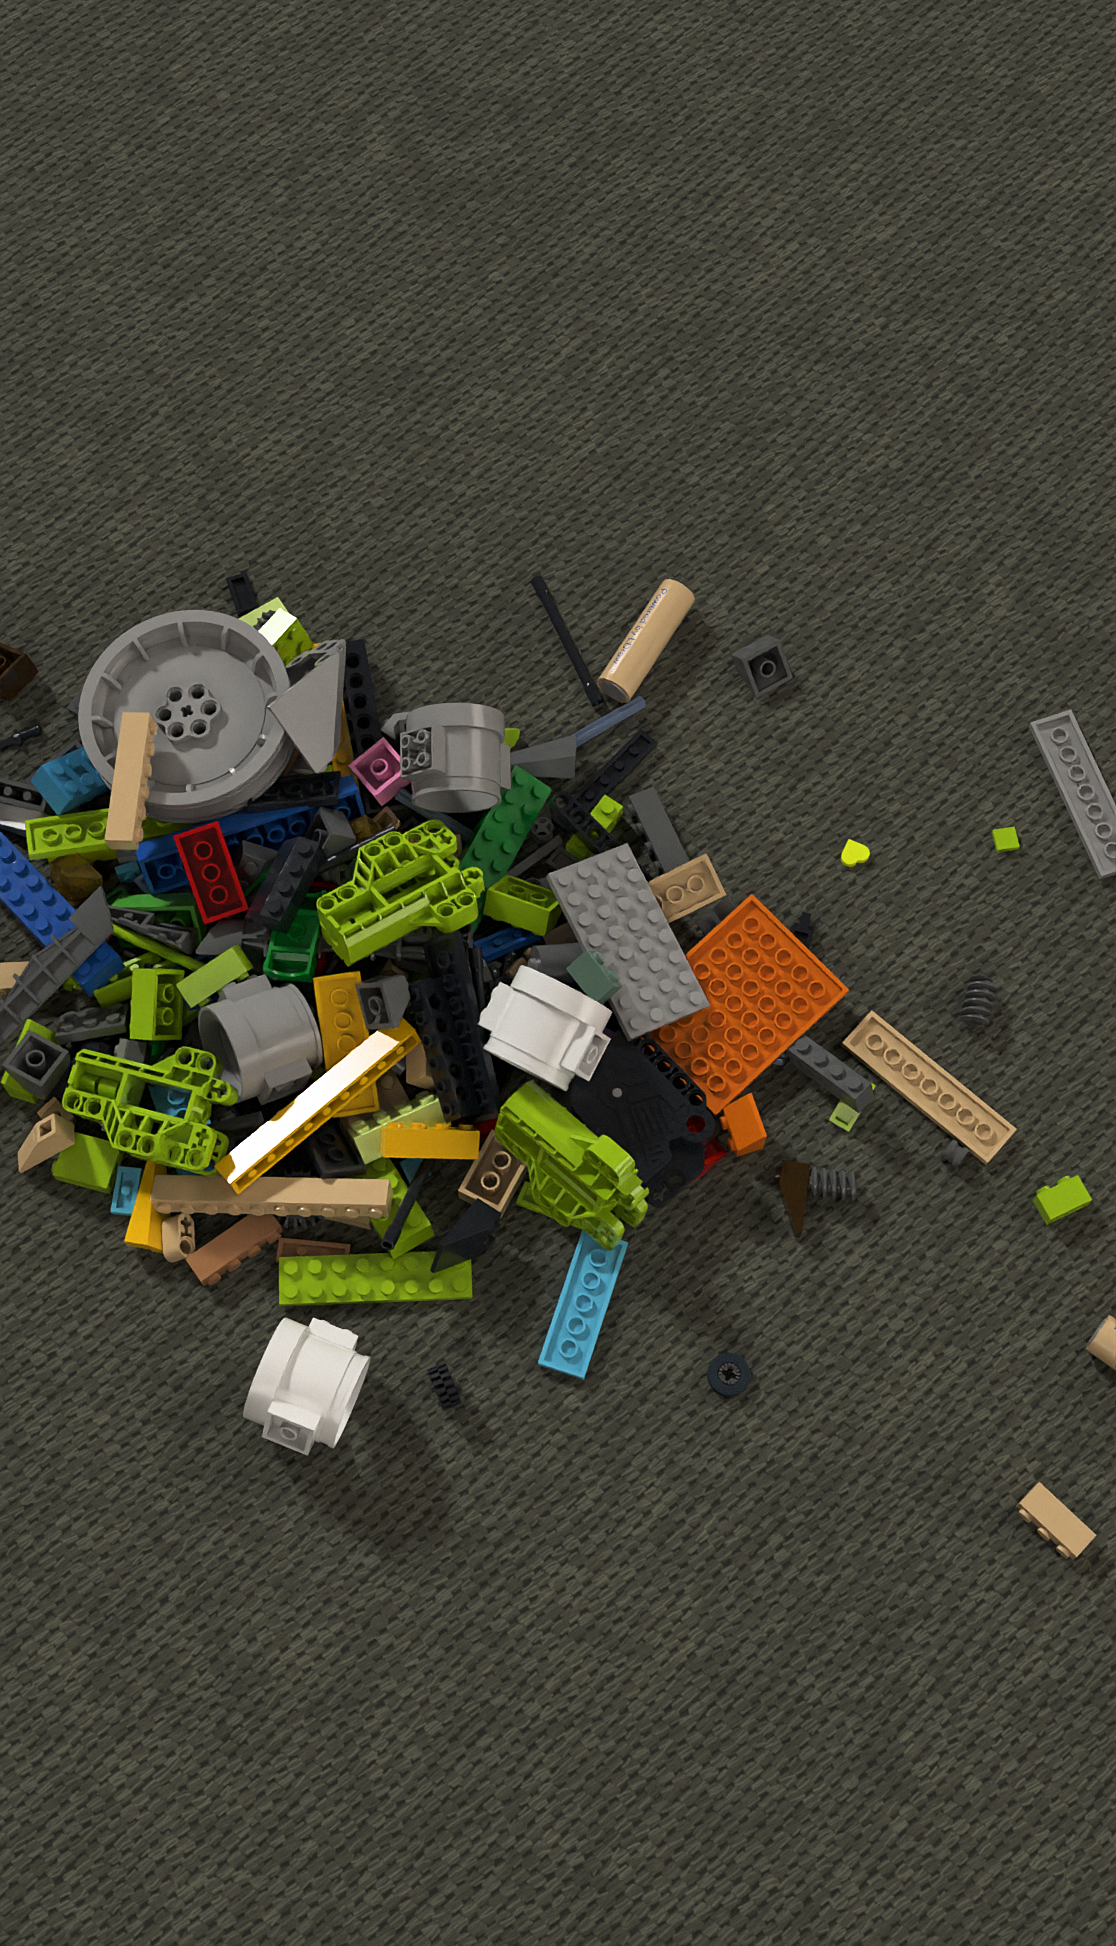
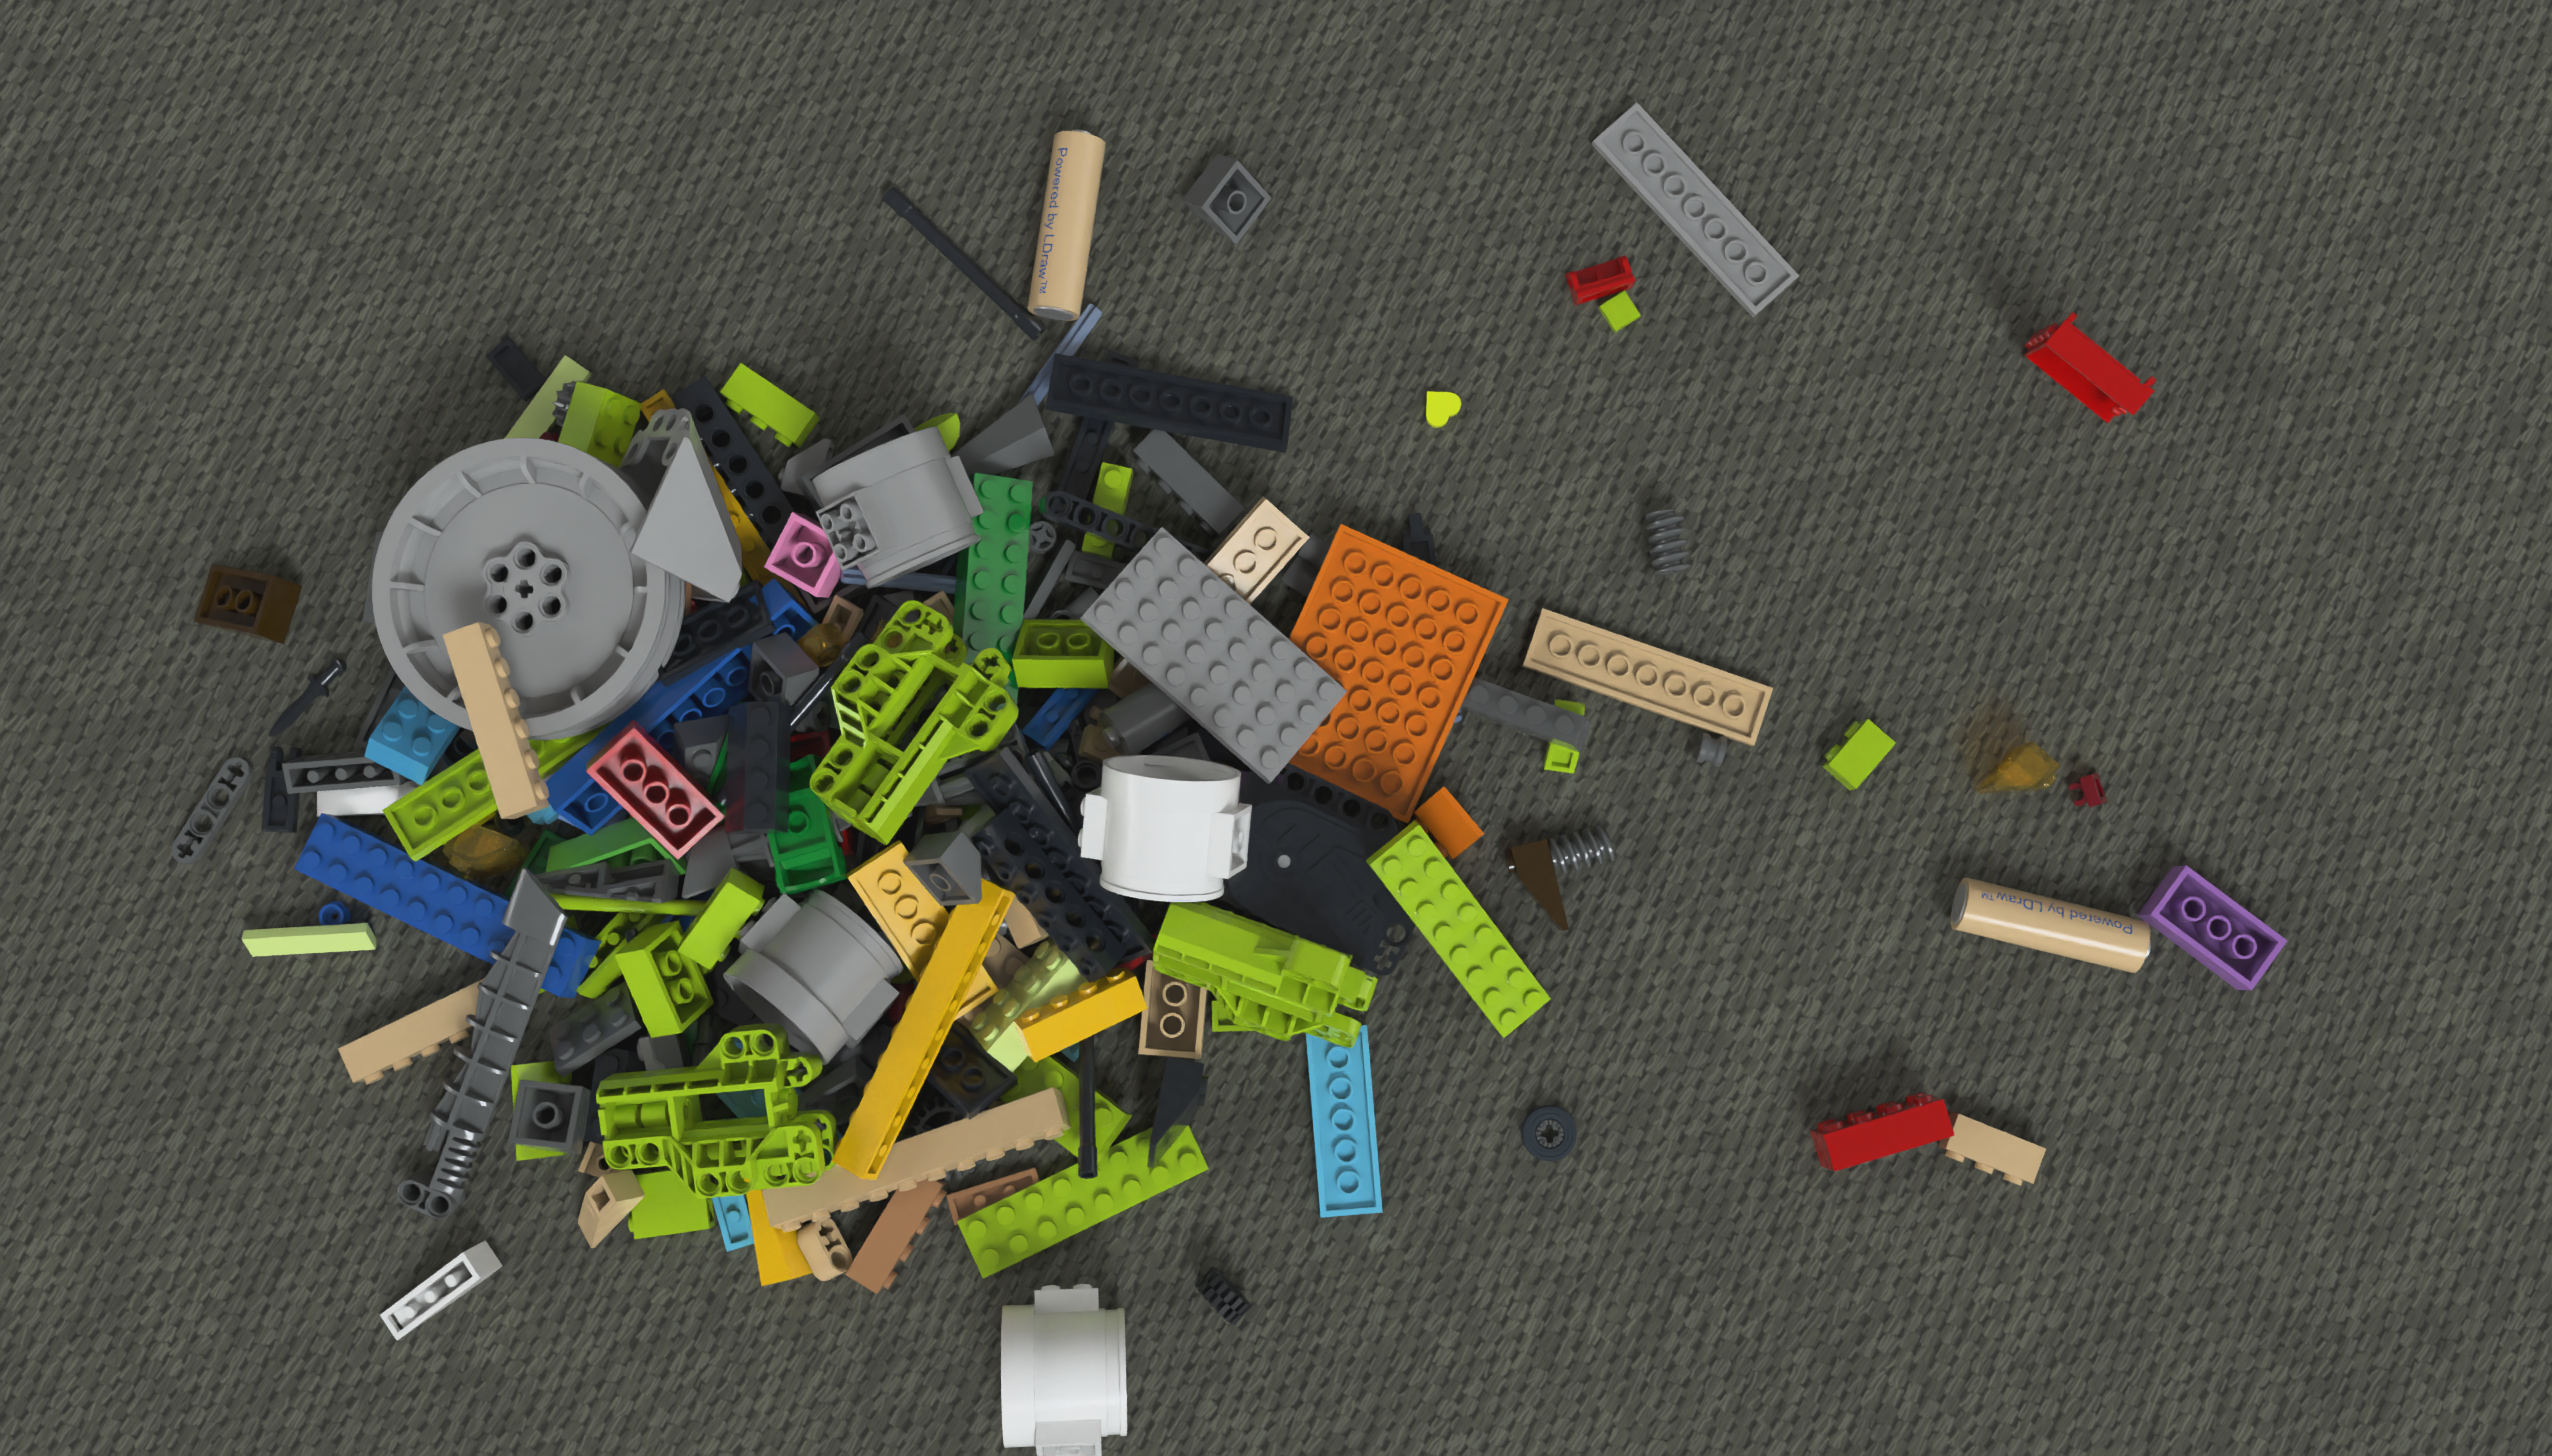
camera: 25 degrees left, 15 degrees up
(396, 678) = (769, 406): none -> lime brick
(594, 976) = (1196, 727): sand green brick -> none
(667, 775) = (1169, 403): none -> black plate
(721, 1194) = (1458, 928): none -> lime plate
(976, 1470) = (1881, 1132): none -> red brick
(999, 814) = (1600, 280): none -> red hinge

